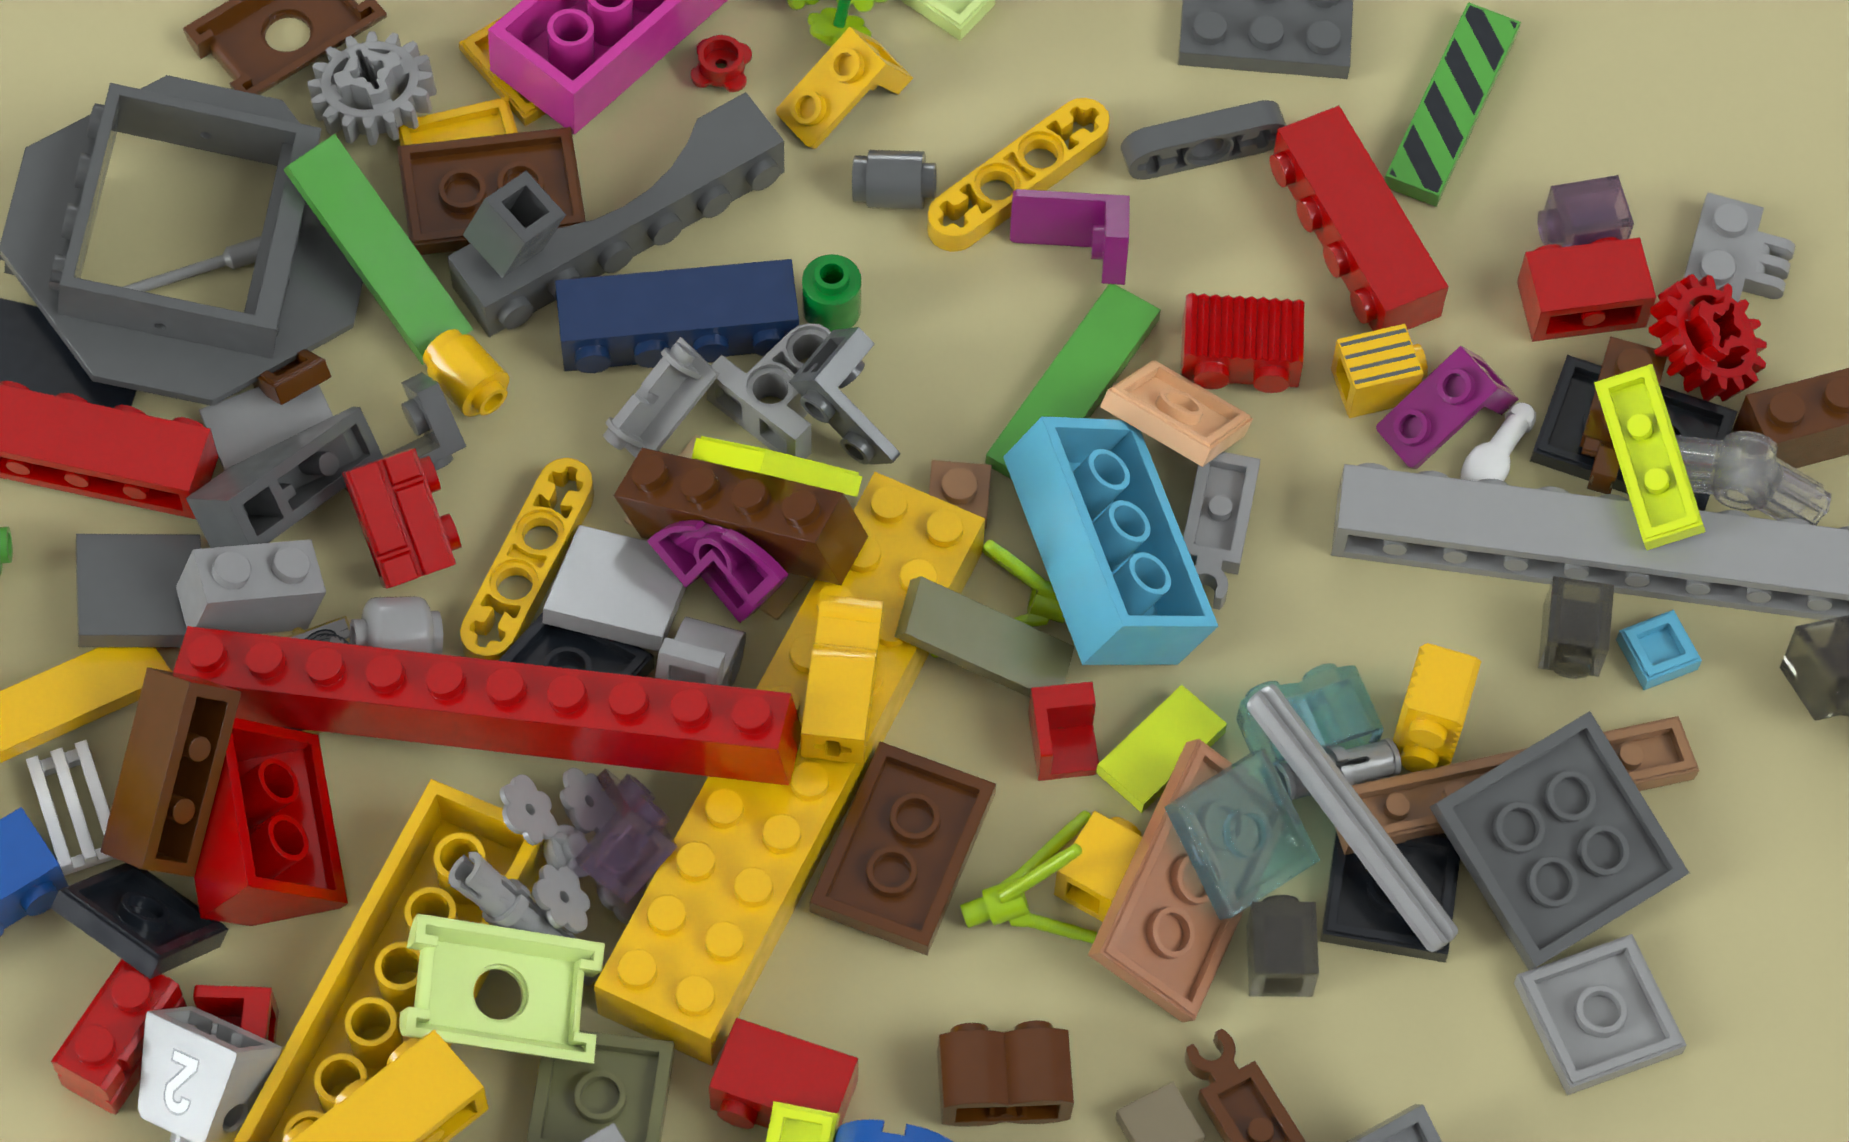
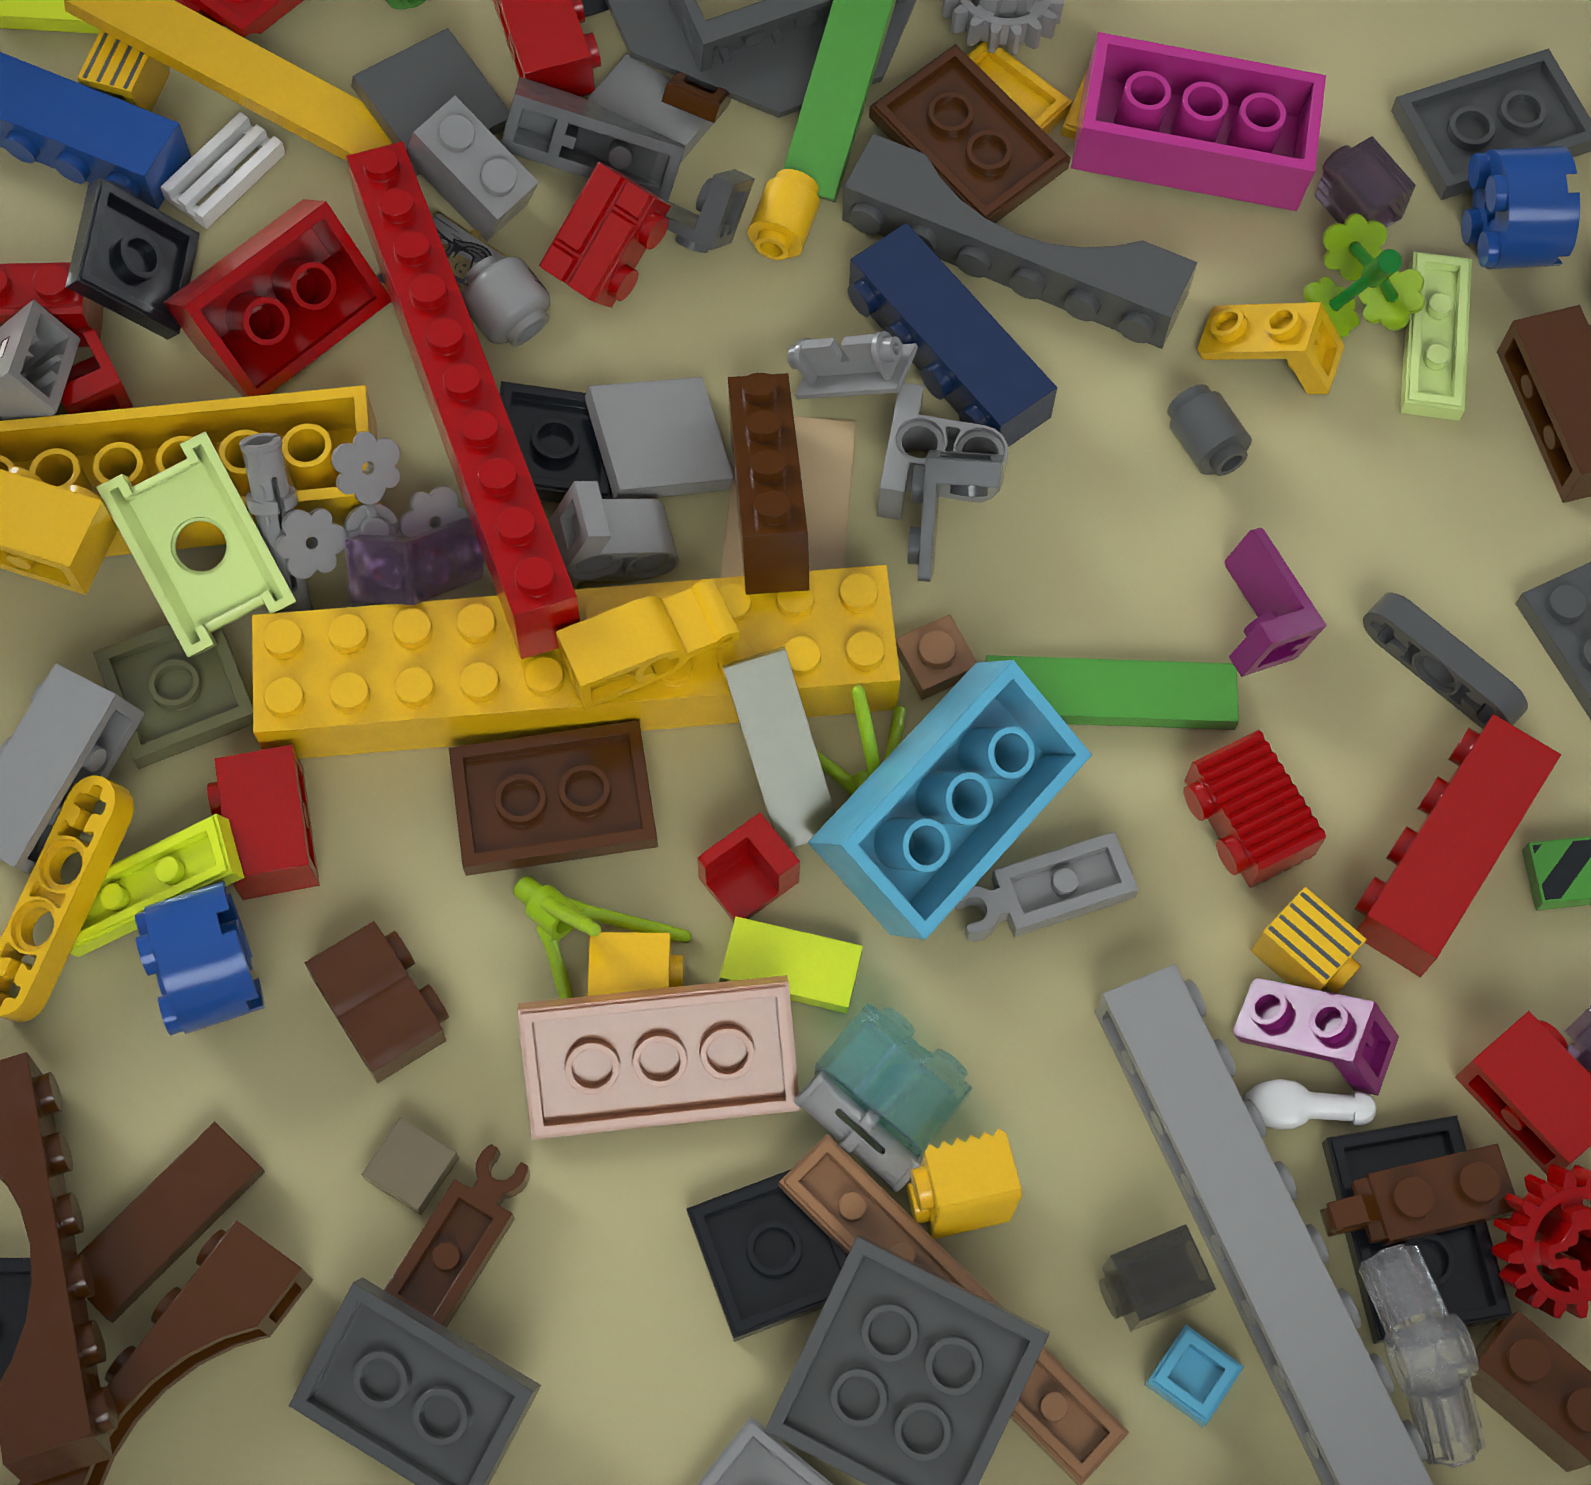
camera: 60 degrees right, 5 degrees up
(170, 772) = (259, 199): reddish brown brick -> none
(514, 224) = (918, 150): dark grey brick -> none
(521, 560) = (643, 349): yellow beam -> none
(721, 50) = (1226, 225): red plate -> none
(726, 560) = (717, 480): magenta brick -> none
(776, 465) = (833, 483): neon yellow tile -> none
(831, 292) = (1051, 441): green brick -> none
(1013, 169) = (1296, 520): yellow beam -> none
(1177, 412) = (1131, 789): light nougat tile -> none
(1242, 834) = (729, 1077): clear light blue tile -> none
(1282, 947) = (646, 1176): clear smoke brick -> none
(1352, 818) = (799, 1168): light grey axle -> none
(1649, 457) = (1374, 1248): neon yellow tile -> none

